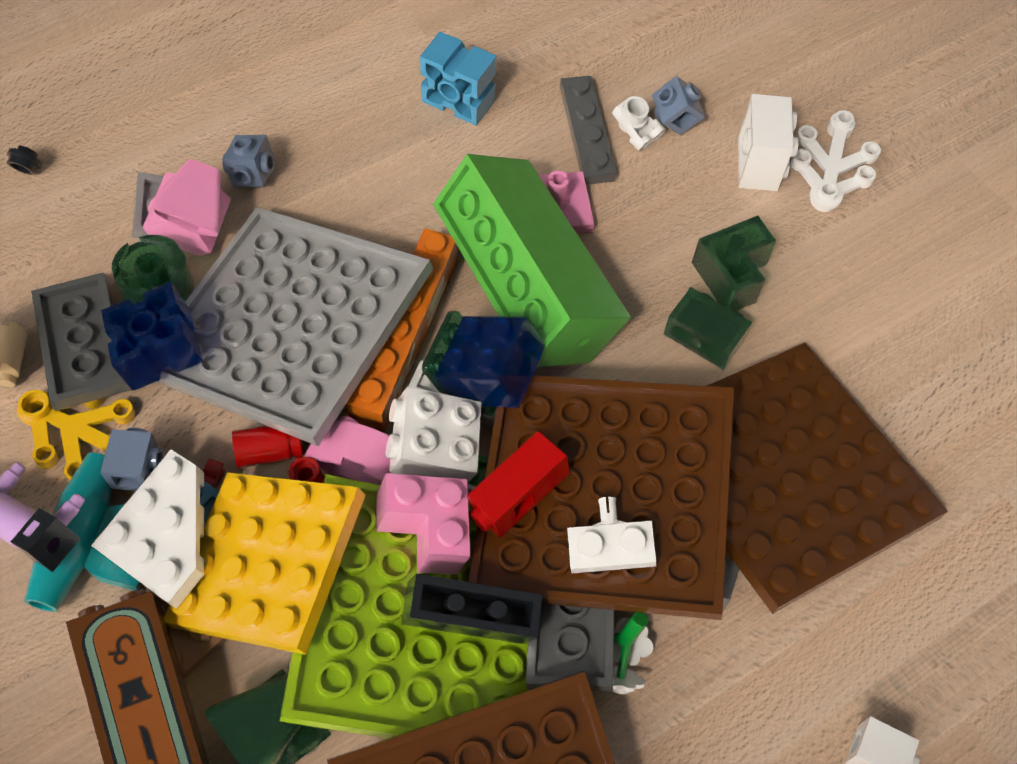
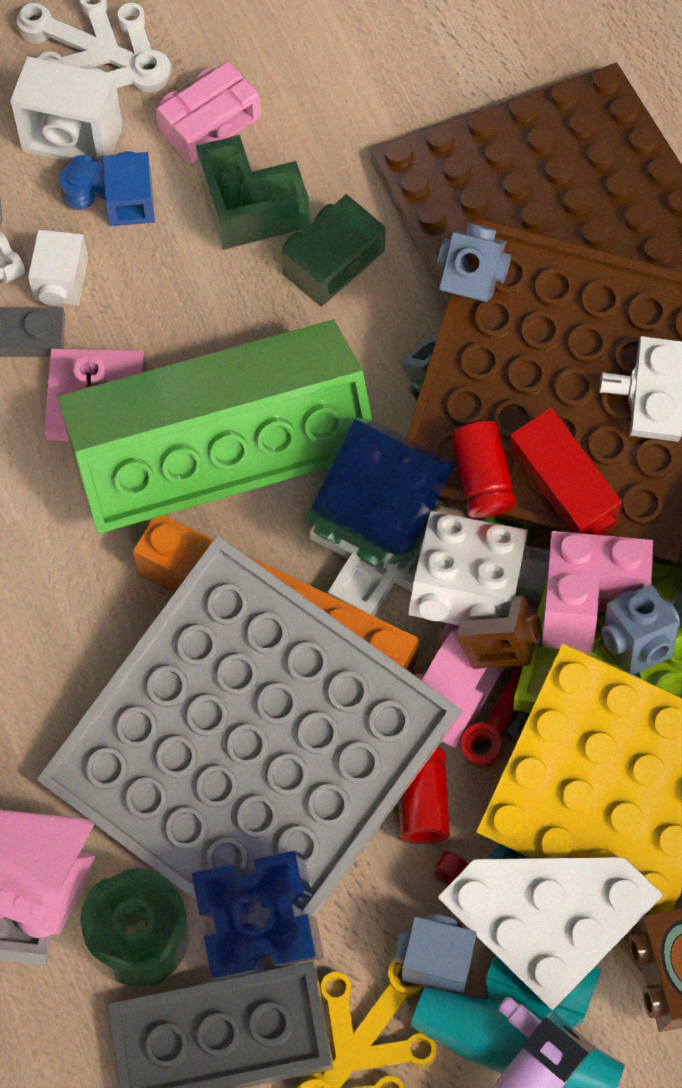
camera: 75 degrees left, 5 degrees up
(374, 458) = (501, 640): none -> reddish brown bracket
(389, 555) = (640, 629): none -> sand blue brick
(513, 425) = (483, 469): none -> red piece
(644, 164) = (58, 268): none -> white brick
(682, 381) = (462, 277): none -> sand blue brick
(720, 187) = (119, 179): none -> blue brick
(802, 232) = (207, 110): none -> bright pink brick

